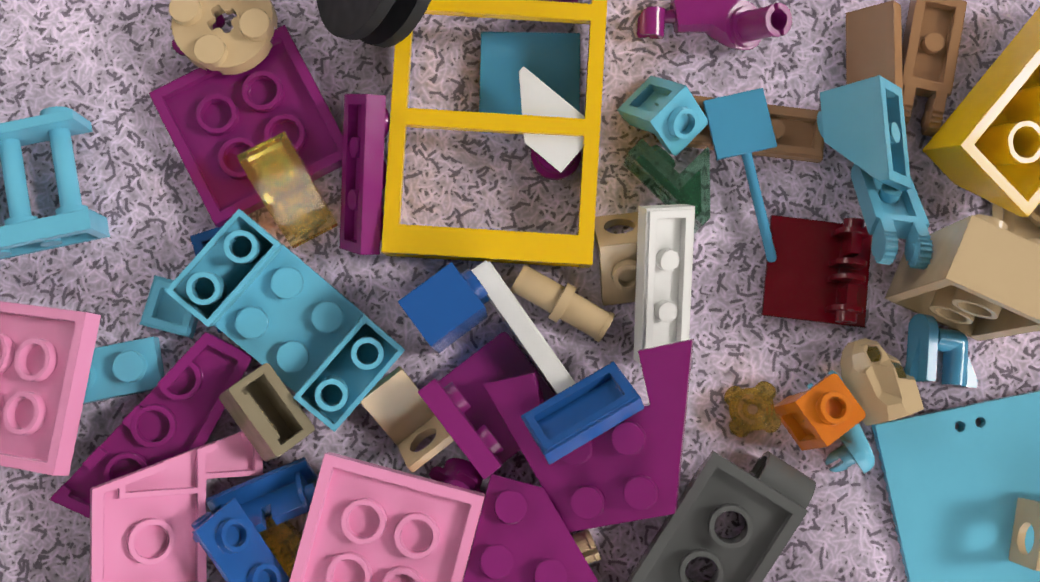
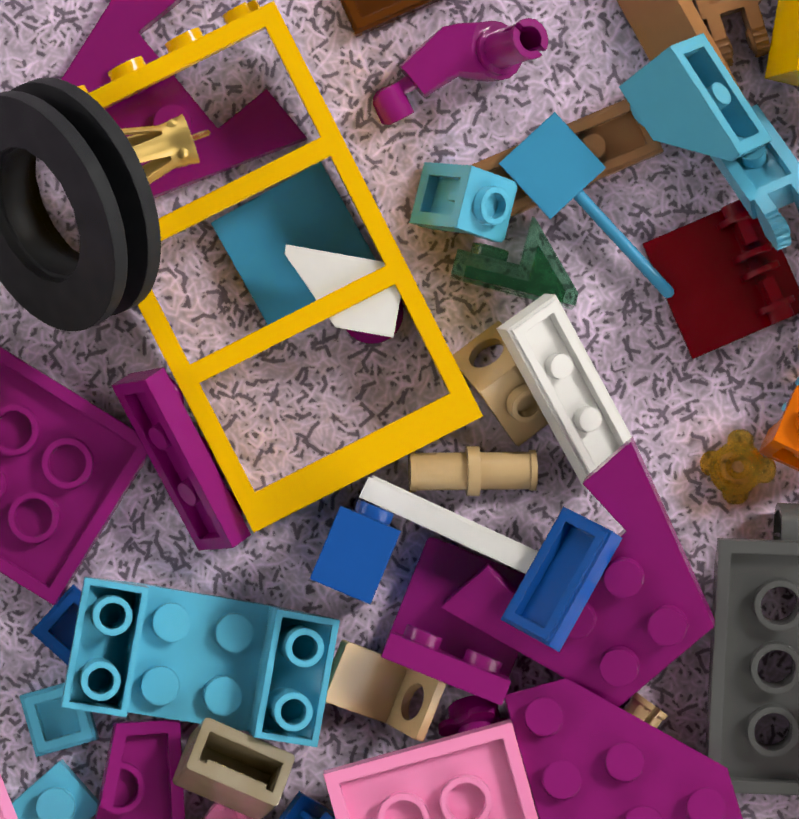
camera: 25 degrees left, 5 degrees up
(287, 189) = (112, 523): clear yellow slope -> none

